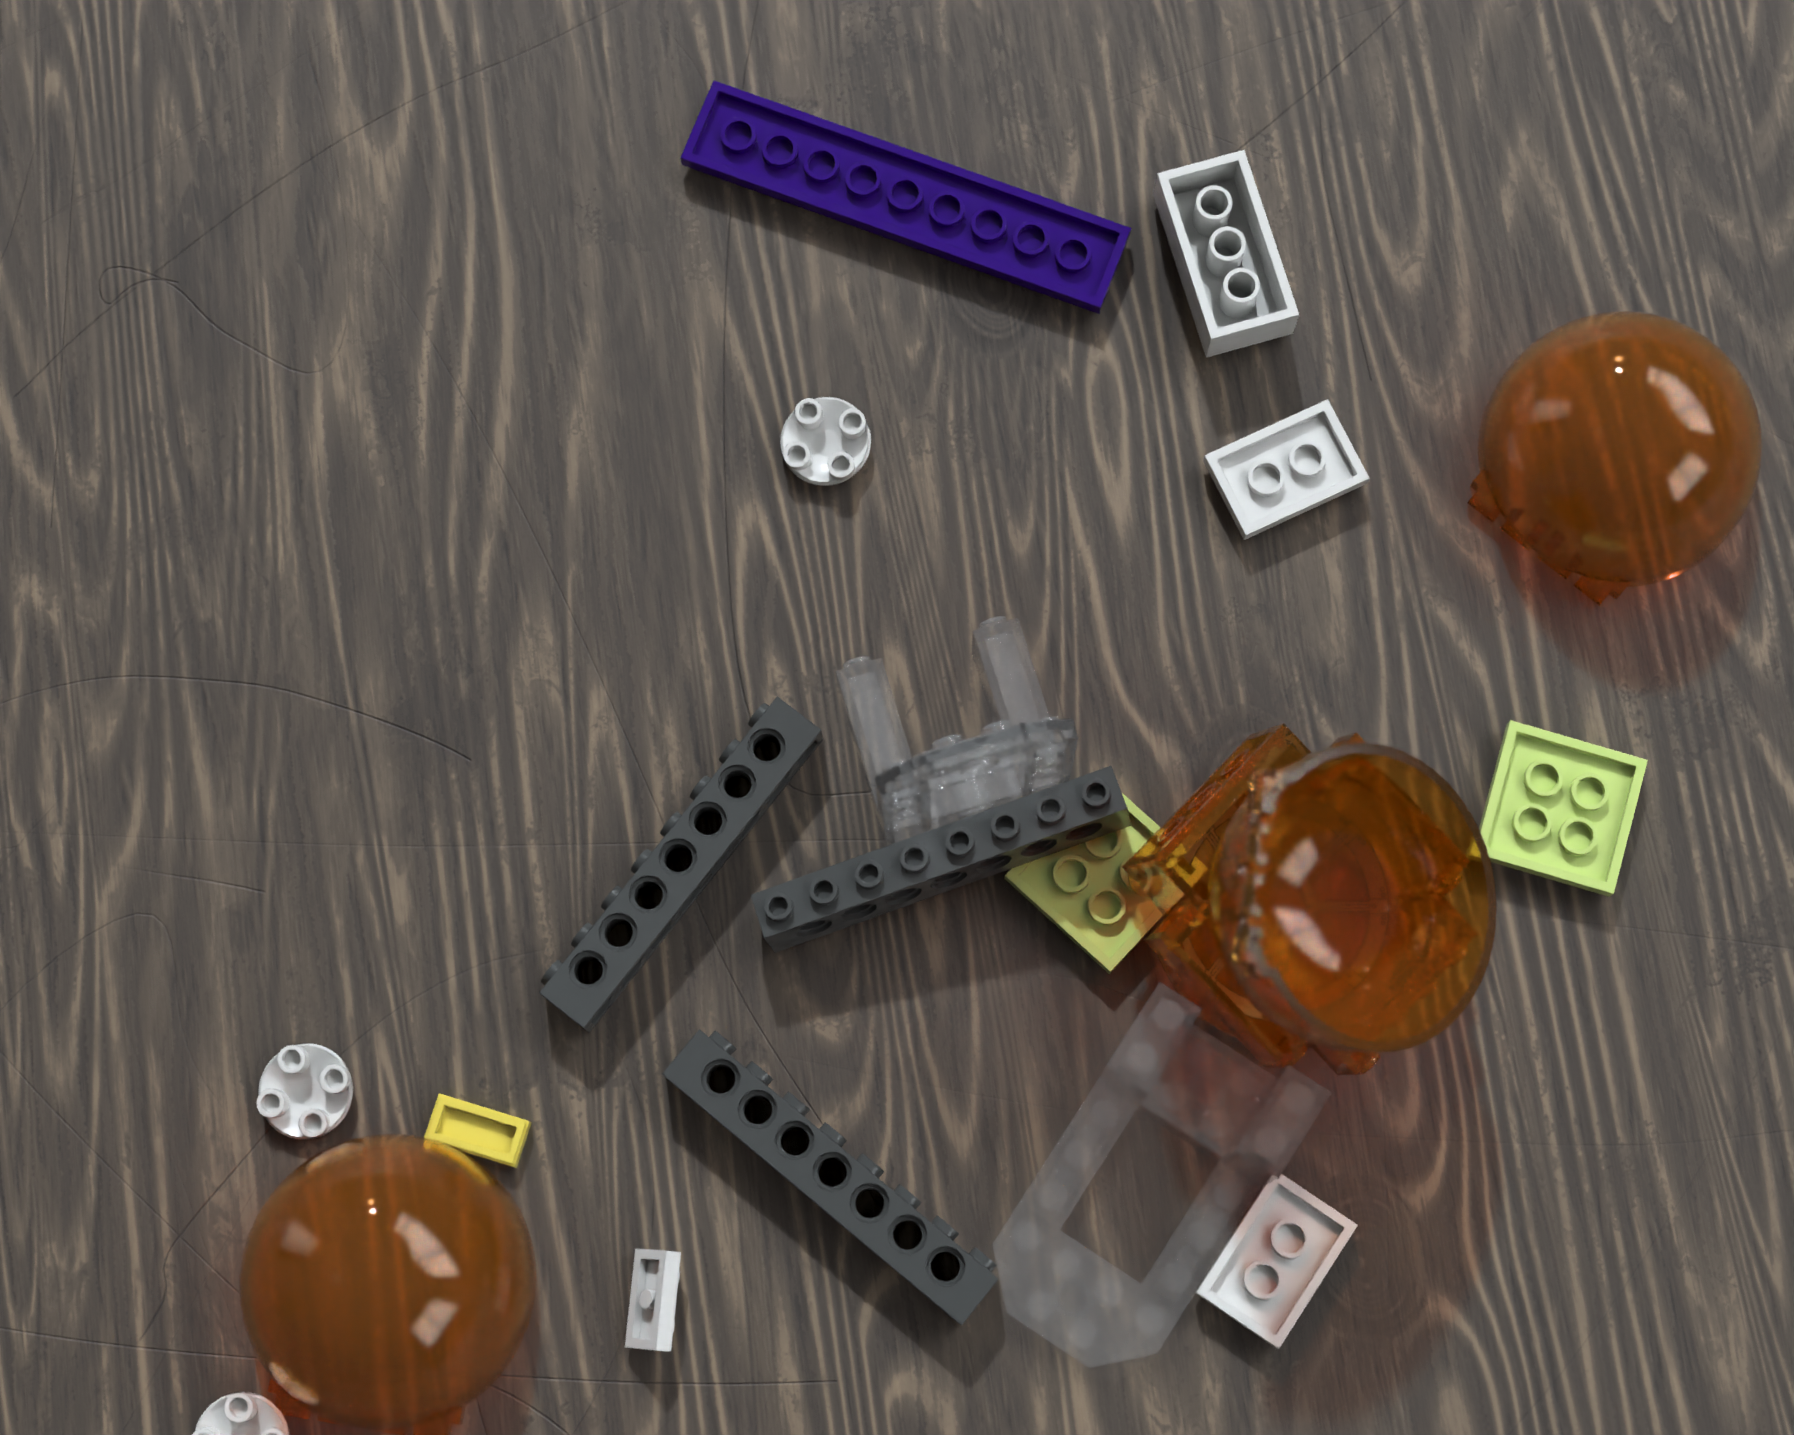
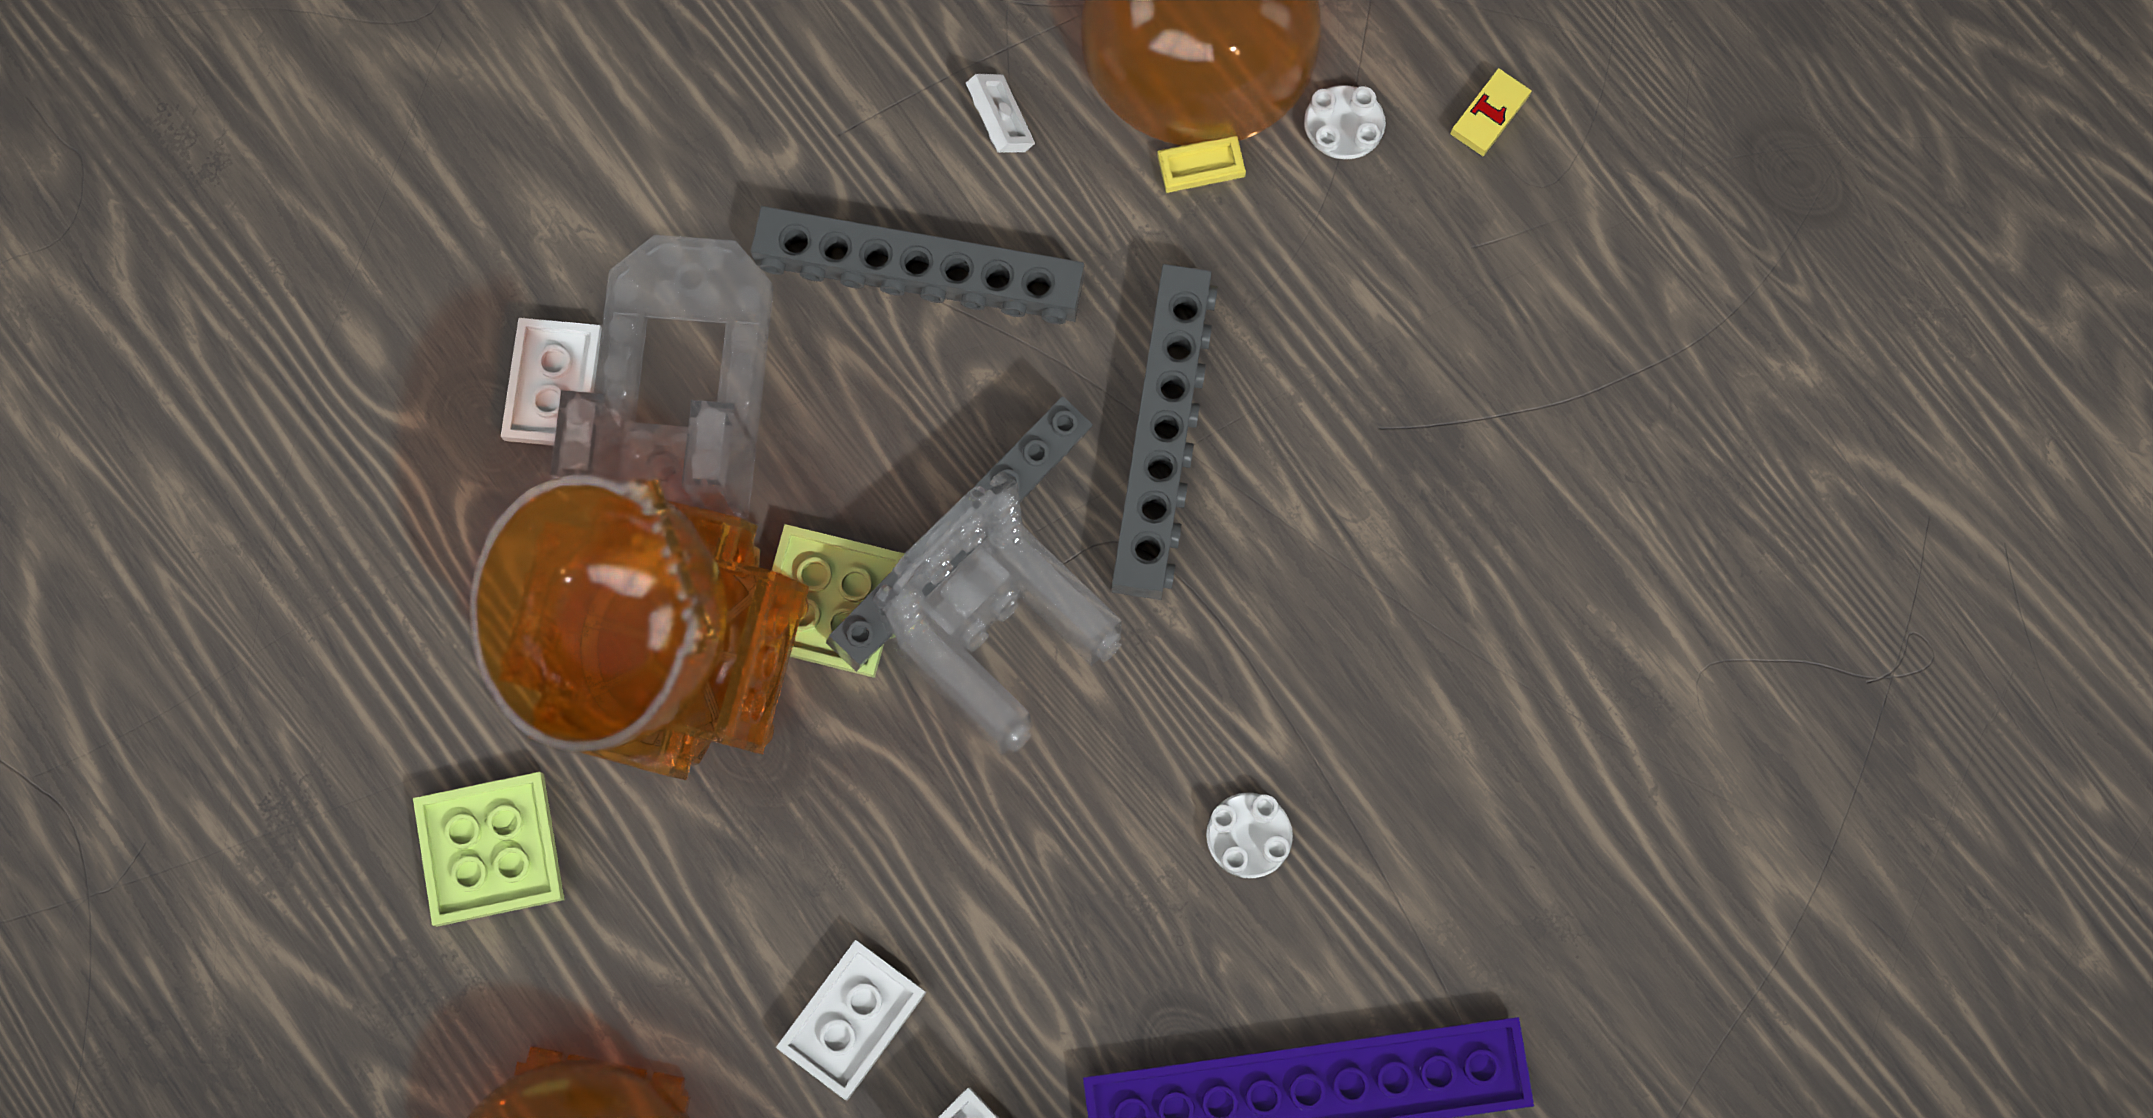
camera: 150 degrees right, 0 degrees up
(152, 1020) = (1490, 112): none -> light yellow tile

